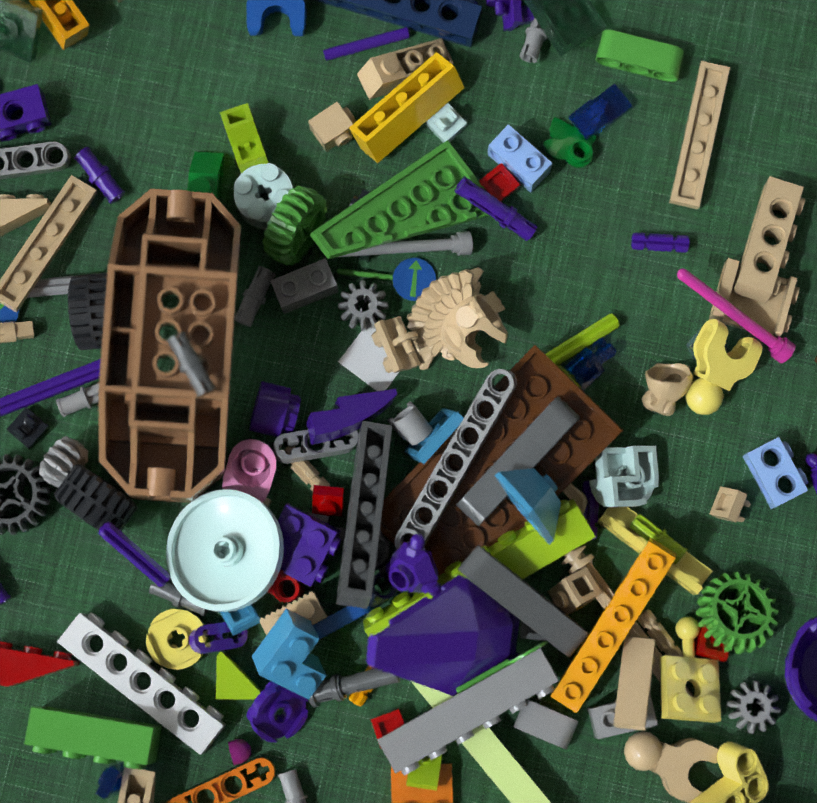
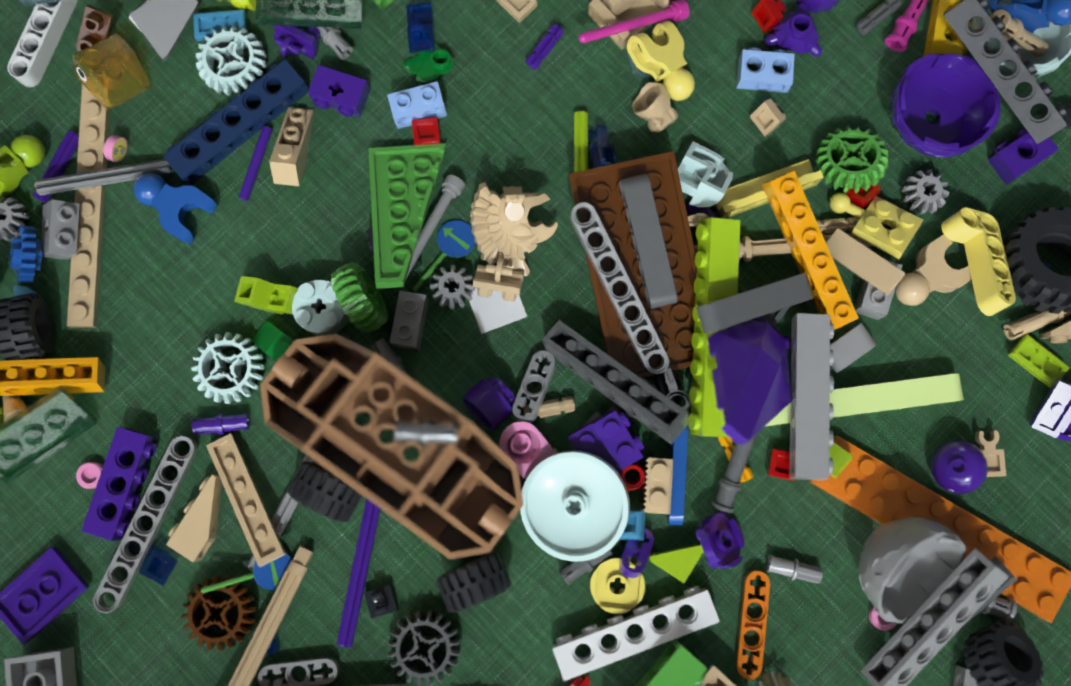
camera: 60 degrees left, 0 degrees up
(61, 460) = (425, 589): light grey gear -> none
(78, 400) = (386, 542): light grey axle -> none
(134, 554) = (534, 577): dark purple axle -> none
(161, 125) = (218, 373): none -> light aqua gear
(239, 750) = (731, 589): magenta hinge -> none
(286, 655) = (688, 506): dark azure brick -> none
(327, 500) = (583, 404): red plate -> none
(332, 126) = (301, 225): tan brick -> none
(348, 415) = (529, 349): dark purple slope -> none
(407, 107) = (324, 161): yellow brick -> none
(411, 425) = (566, 306): light grey piece -> none
(414, 568) = (682, 368): dark purple rock -> none
(443, 425) = (585, 294): dark azure tile -> none
(446, 123) = (354, 142): light aqua tile -> none
(477, 679) = (793, 326): bright green piece -> none
(484, 59) = (330, 82): none -> dark purple brick
(502, 213) = (453, 141): dark purple pin -> none
(533, 498) = (686, 246): dark azure slope -> none
(575, 591) = (766, 264): tan brick -> none
(647, 529) = (754, 183): lime axle -> none

